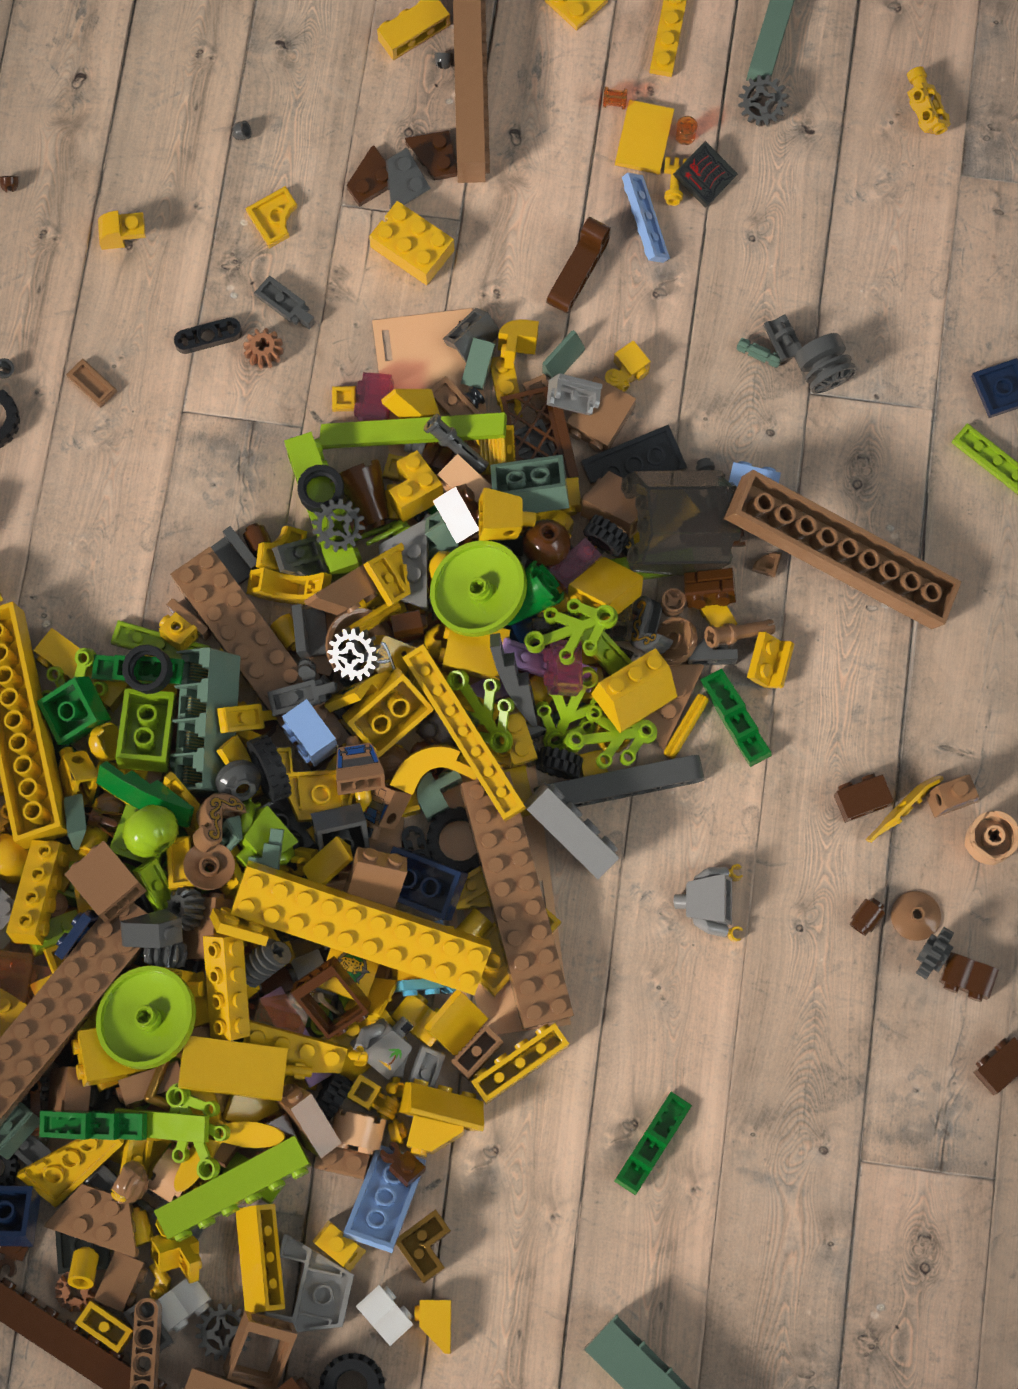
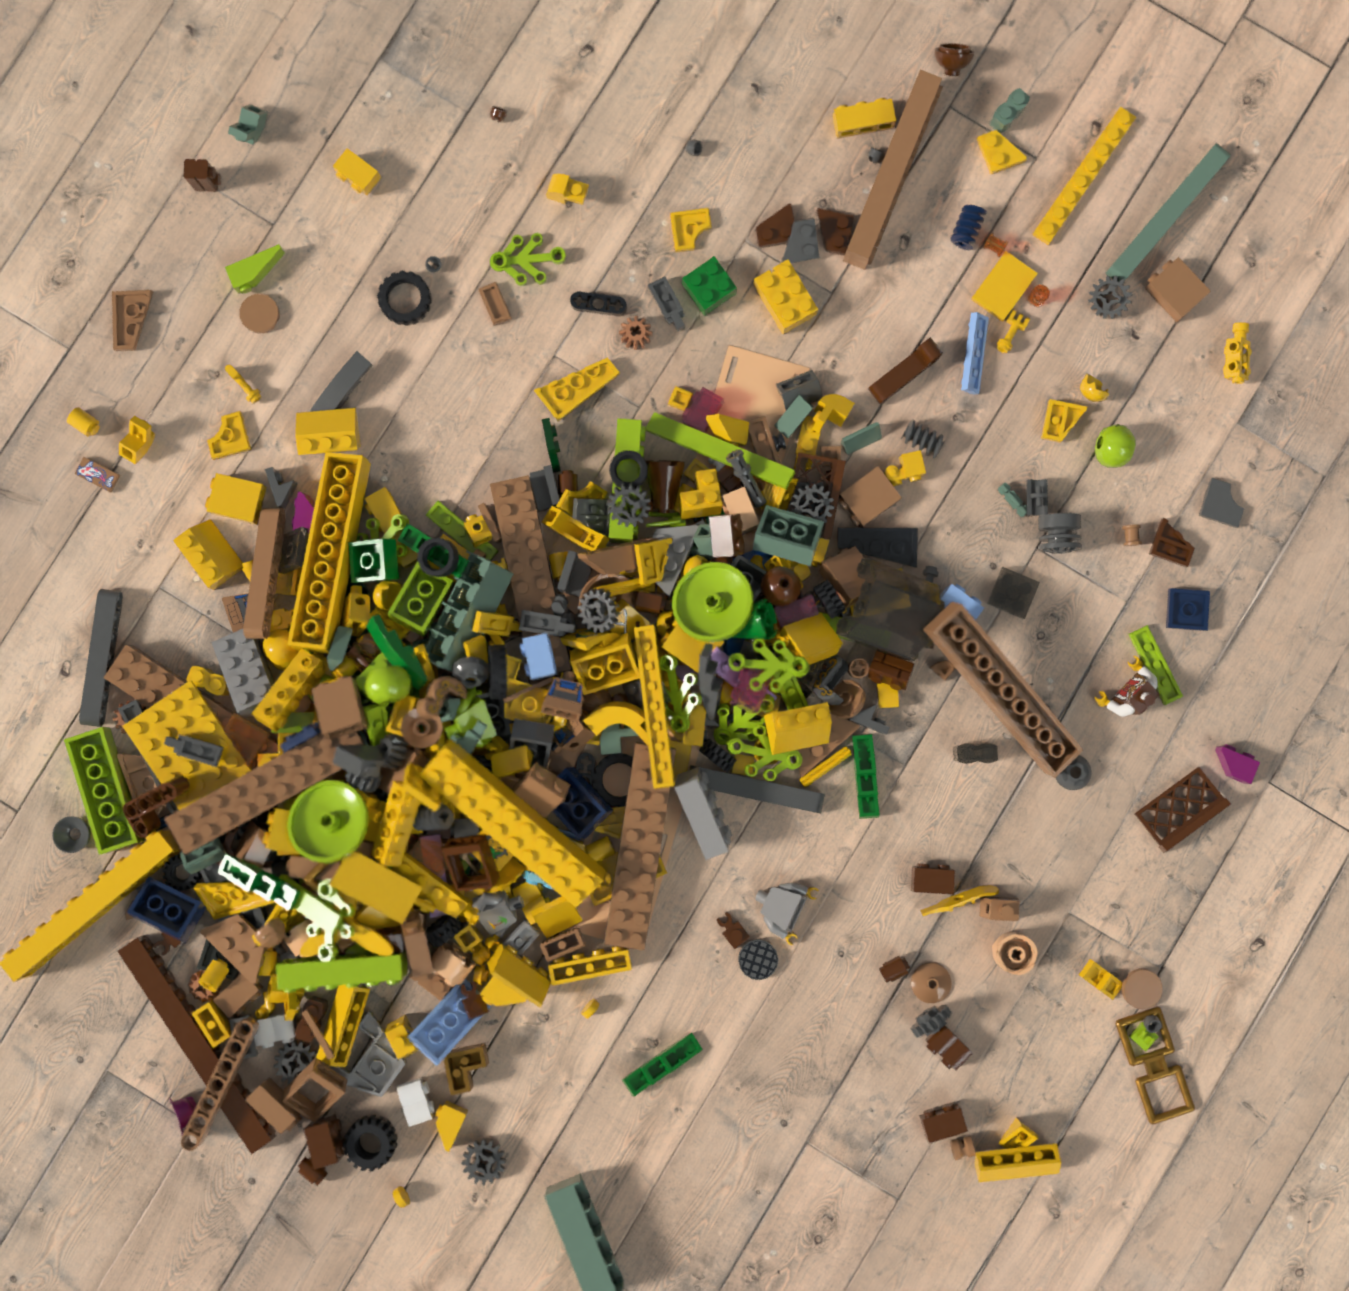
camera: 25 degrees right, 10 degrees up
(106, 322) = (524, 259): none -> lime plant
(219, 1262) = (317, 1008): none -> reddish brown brick
(220, 438) = (571, 391): none -> yellow wing
(222, 504) = (552, 445): none -> dark green wing
(236, 1279) = (324, 1044): none -> medium nougat piece
(322, 767) = (538, 685): none -> medium nougat piece
(323, 265) = (709, 285): none -> green brick
(487, 1359) = (488, 1173): none -> dark grey gear
(502, 515) = (755, 553): yellow torso -> none
(541, 1115) = (590, 1008): none -> yellow tile
(551, 438) = (810, 496): none -> dark grey gear
(573, 394) = (854, 476): light grey hinge -> none
(576, 91) = (965, 226): none -> dark blue piece
(631, 328) = (923, 438): none -> dark grey piece
(668, 957) = (734, 932): none -> reddish brown plate
(705, 174) = (1037, 338): pearl dark grey tile -> none
(708, 974) = (758, 959): none -> tile
(731, 633) = (890, 713): medium nougat pin -> none
(770, 248) = (1060, 419): none -> yellow wing
(770, 661) = (911, 746): yellow bracket -> none
(789, 202) = (1092, 389): none -> yellow hair
(805, 450) = (1013, 593): none -> clear smoke plate
(830, 64) = (1176, 288): none -> medium nougat brick
(840, 639) = (975, 753): none -> clear smoke brick
(841, 249) = (1115, 446): none -> lime piece
(904, 335) = (1132, 535): none -> medium nougat bush
(952, 329) = (1171, 545): none -> reddish brown wing
(962, 626) = (1070, 783): none -> dark grey piece
(983, 266) = (1219, 504): none -> dark grey tile
(989, 501) = (1135, 694): none -> torso

